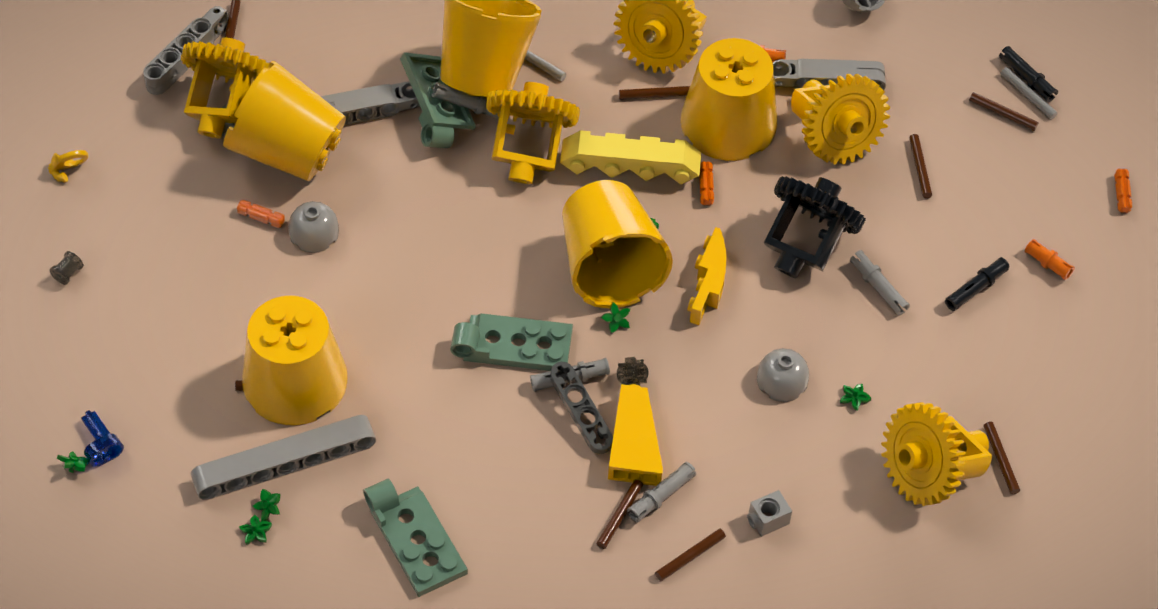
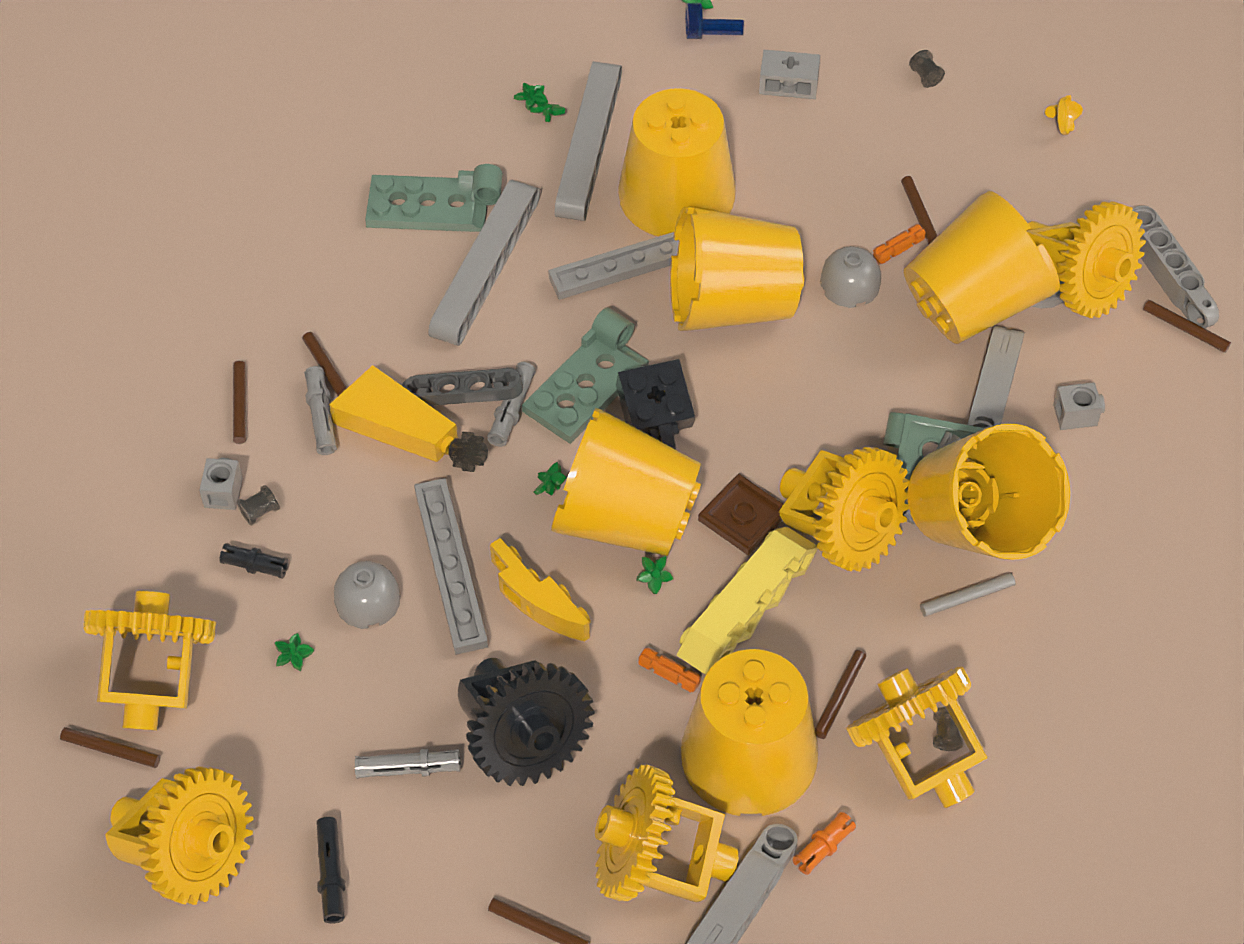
camera: 125 degrees right, 0 degrees up
(128, 354) = (789, 74): none -> light grey brick
(218, 215) = (919, 208): none -> reddish brown bar
(347, 55) = (1078, 406): none -> light grey brick
(381, 272) = (733, 270): none -> yellow cone
(389, 366) = (613, 266): none -> light grey plate
(454, 460) = (484, 263): none -> light grey beam
(513, 280) = (661, 382): none -> black hinge
(552, 196) = (742, 514): none -> reddish brown tile
(724, 339) = (451, 566): none -> light grey plate
(767, 479) = (258, 505): none -> clear smoke bush
(809, 458) = (254, 560): none -> black pin
(1032, 330) = (184, 833): none -> yellow piece

